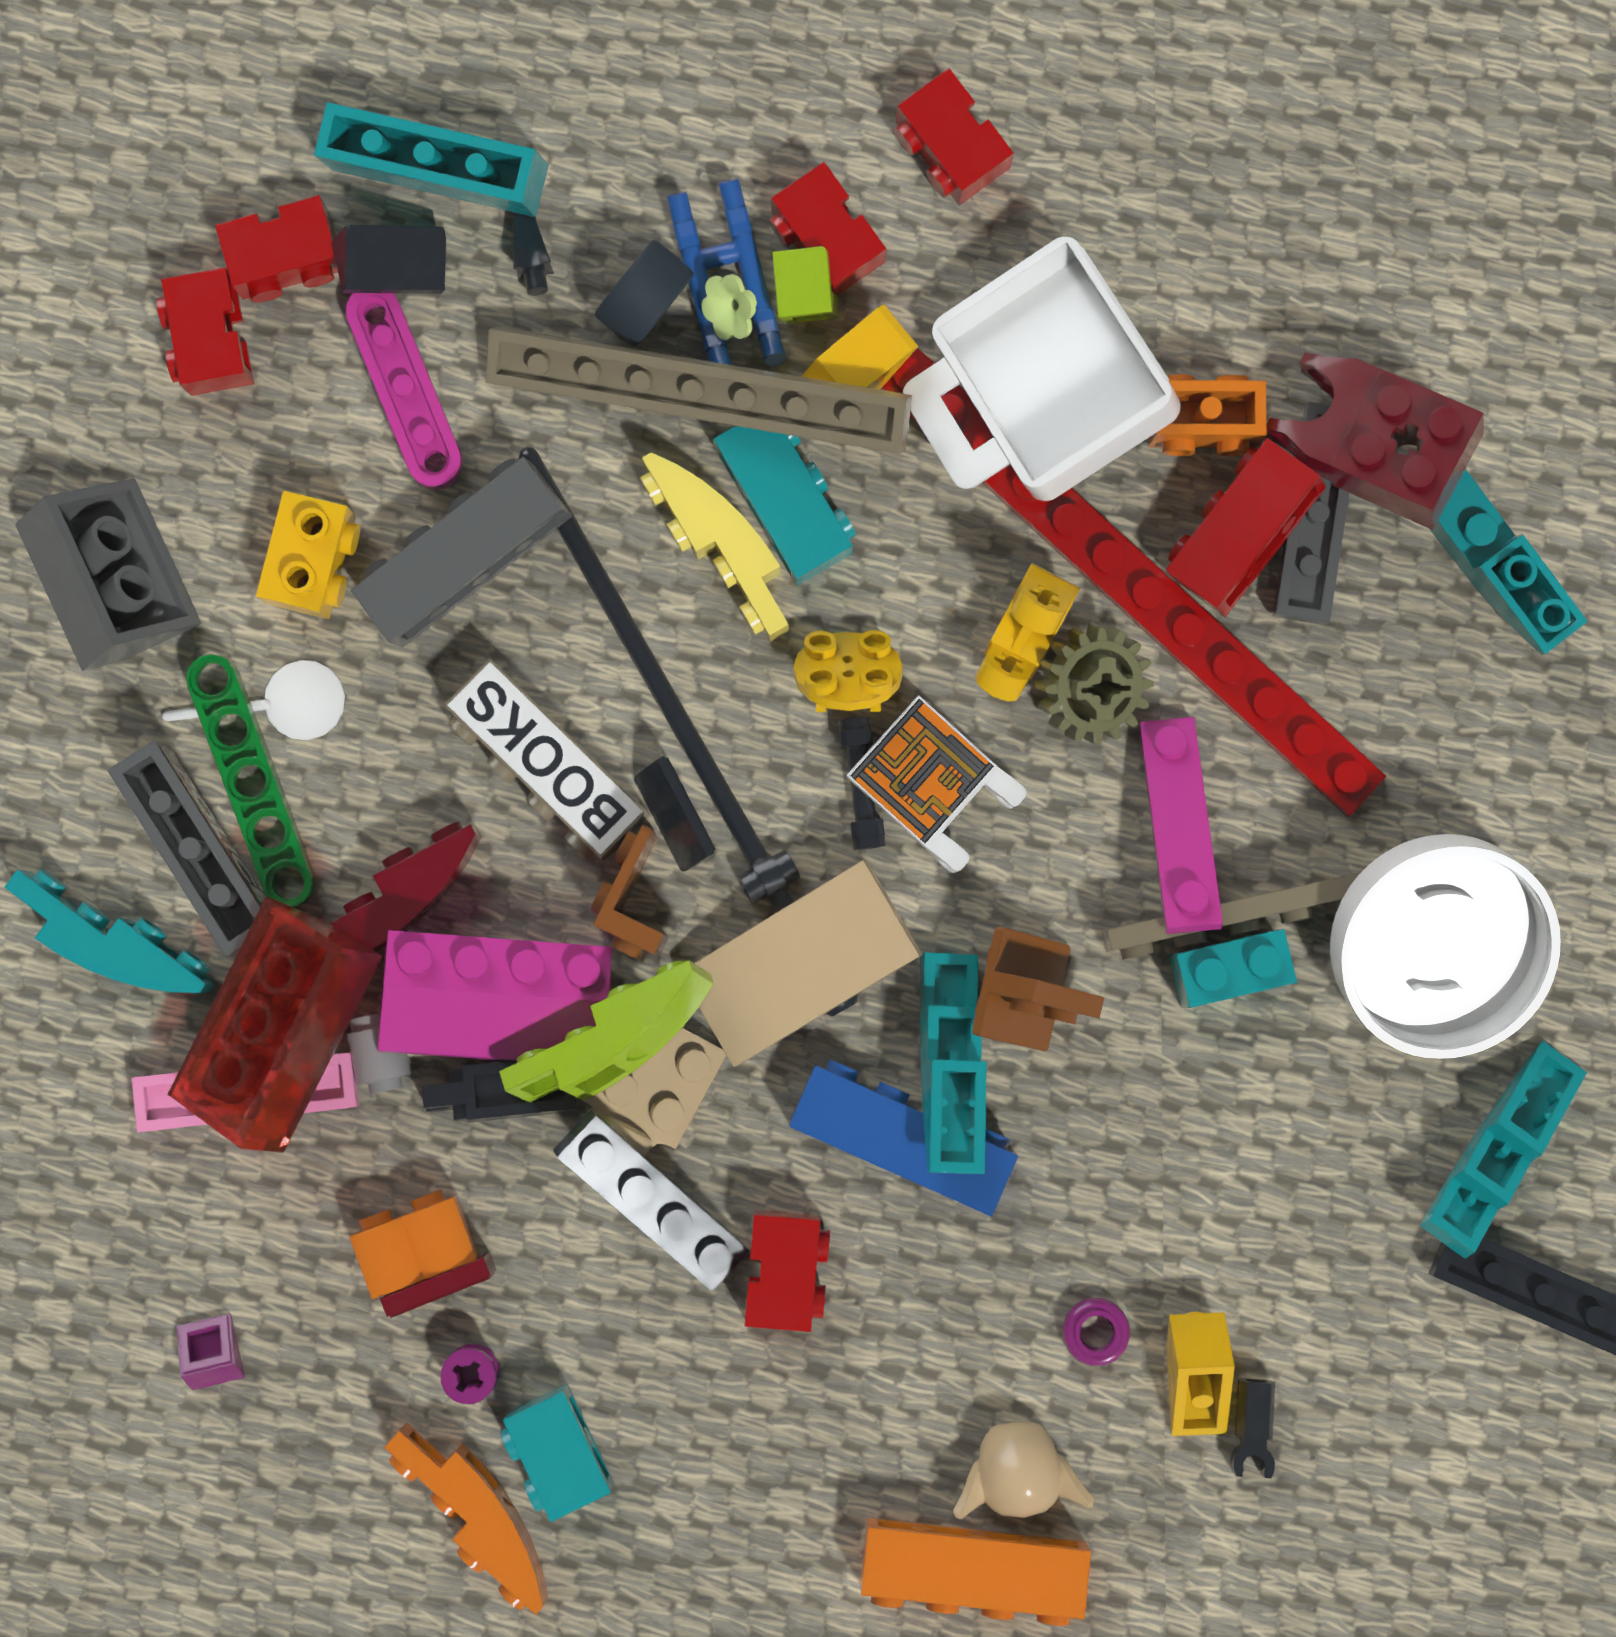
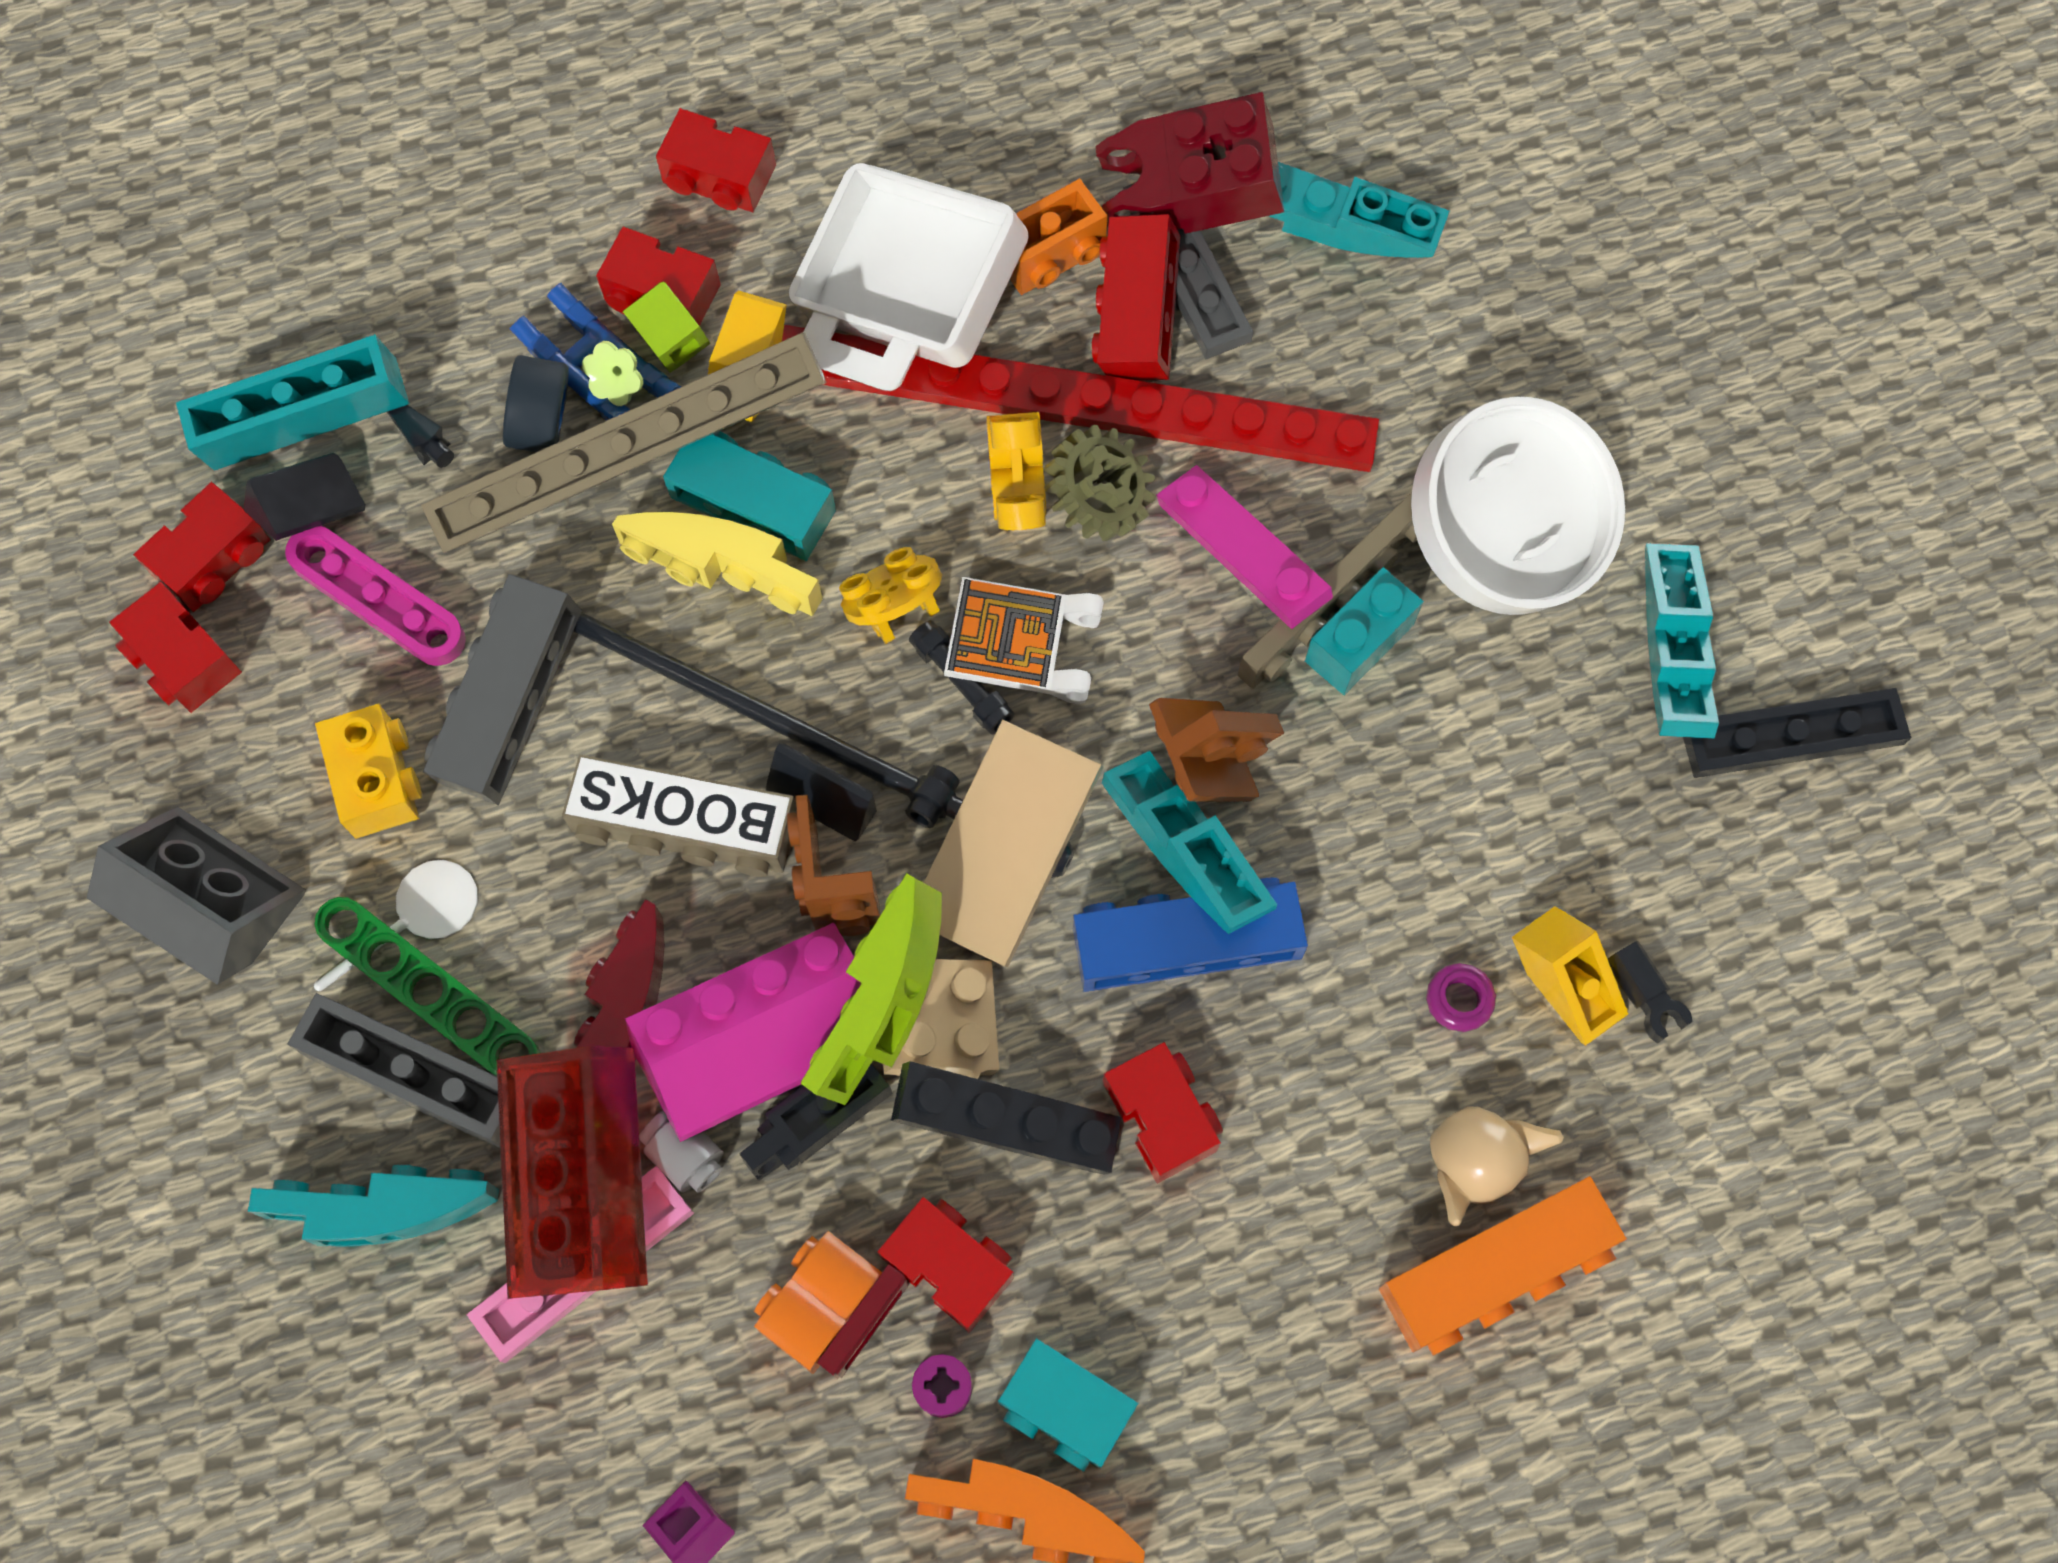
camera: 30 degrees left, 15 degrees down
(538, 1284) = (937, 1249): none -> red brick

